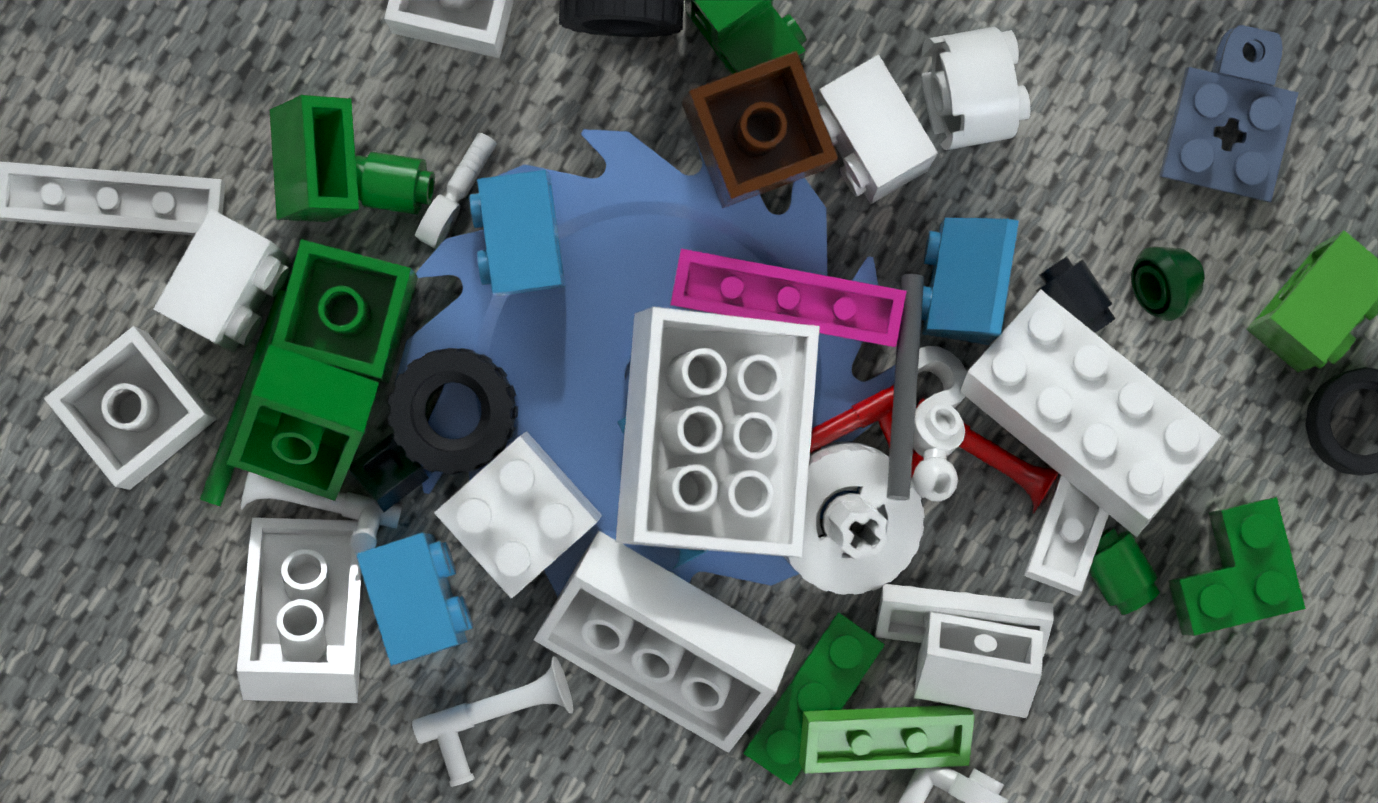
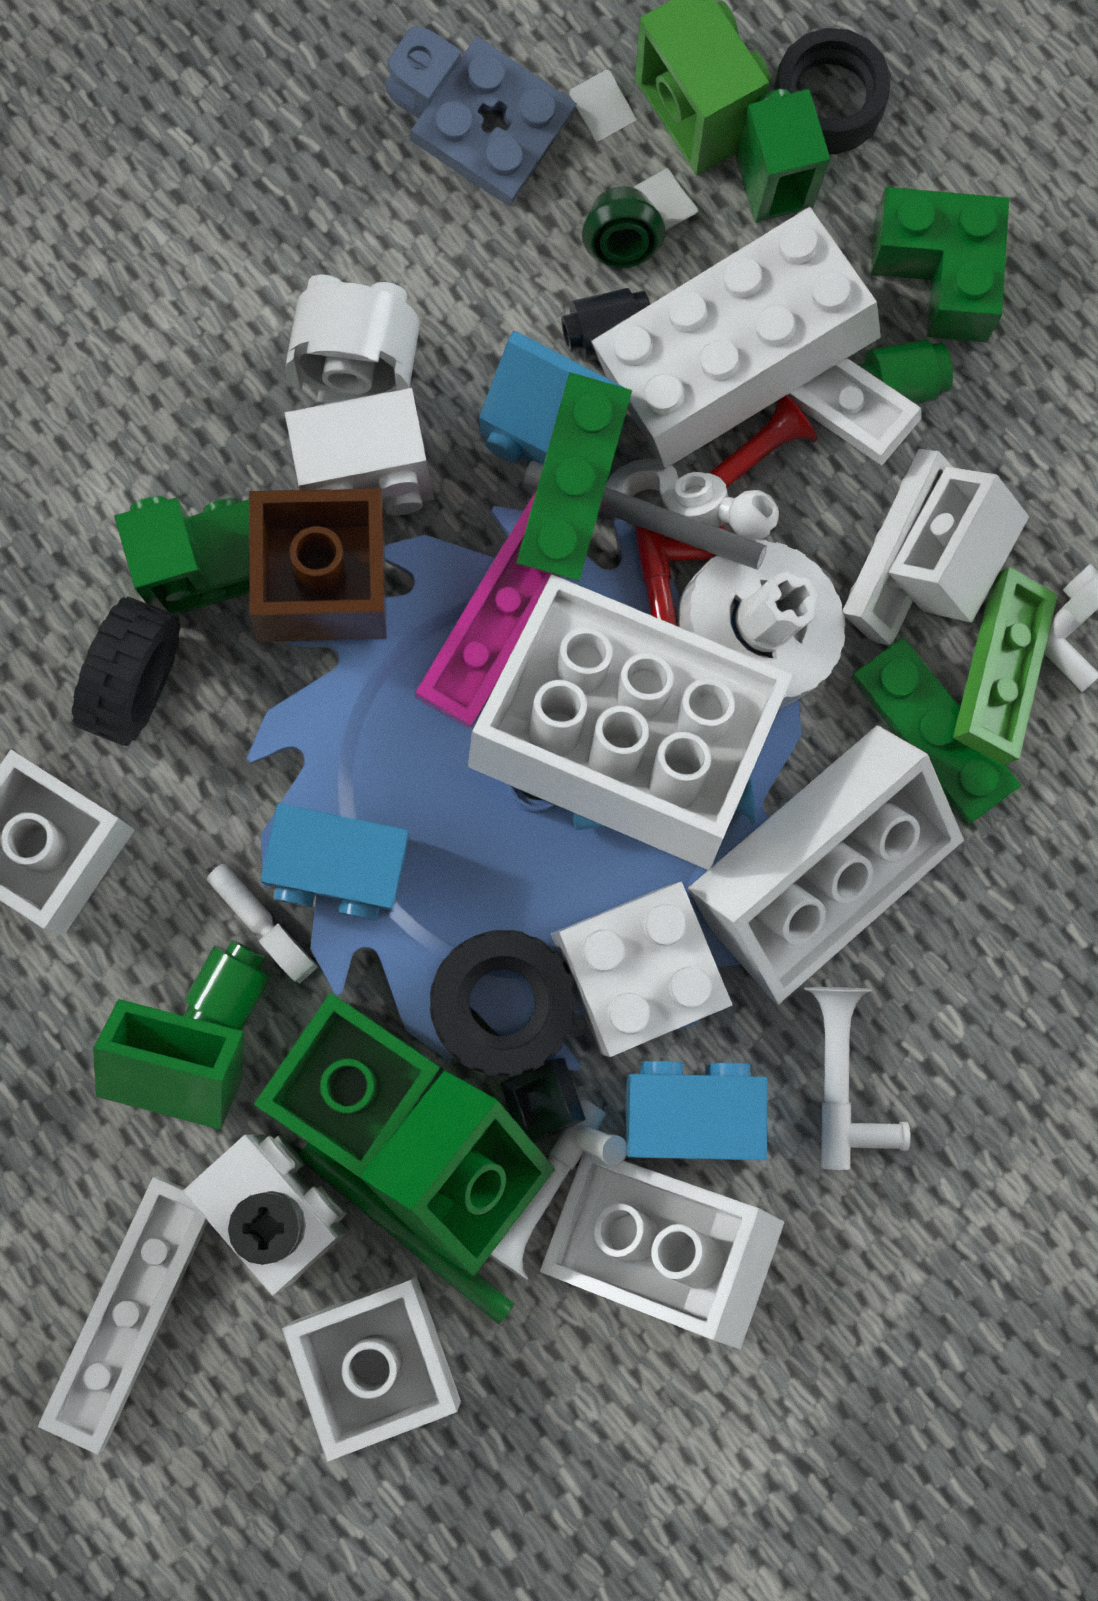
camera: 70 degrees left, 5 degrees down
(208, 295) = (280, 1227): none -> pearl dark grey wheel
(907, 315) = (574, 476): none -> green plate
(1277, 231) = (606, 112): none -> white sticker
(1277, 396) = (782, 154): none -> green brick

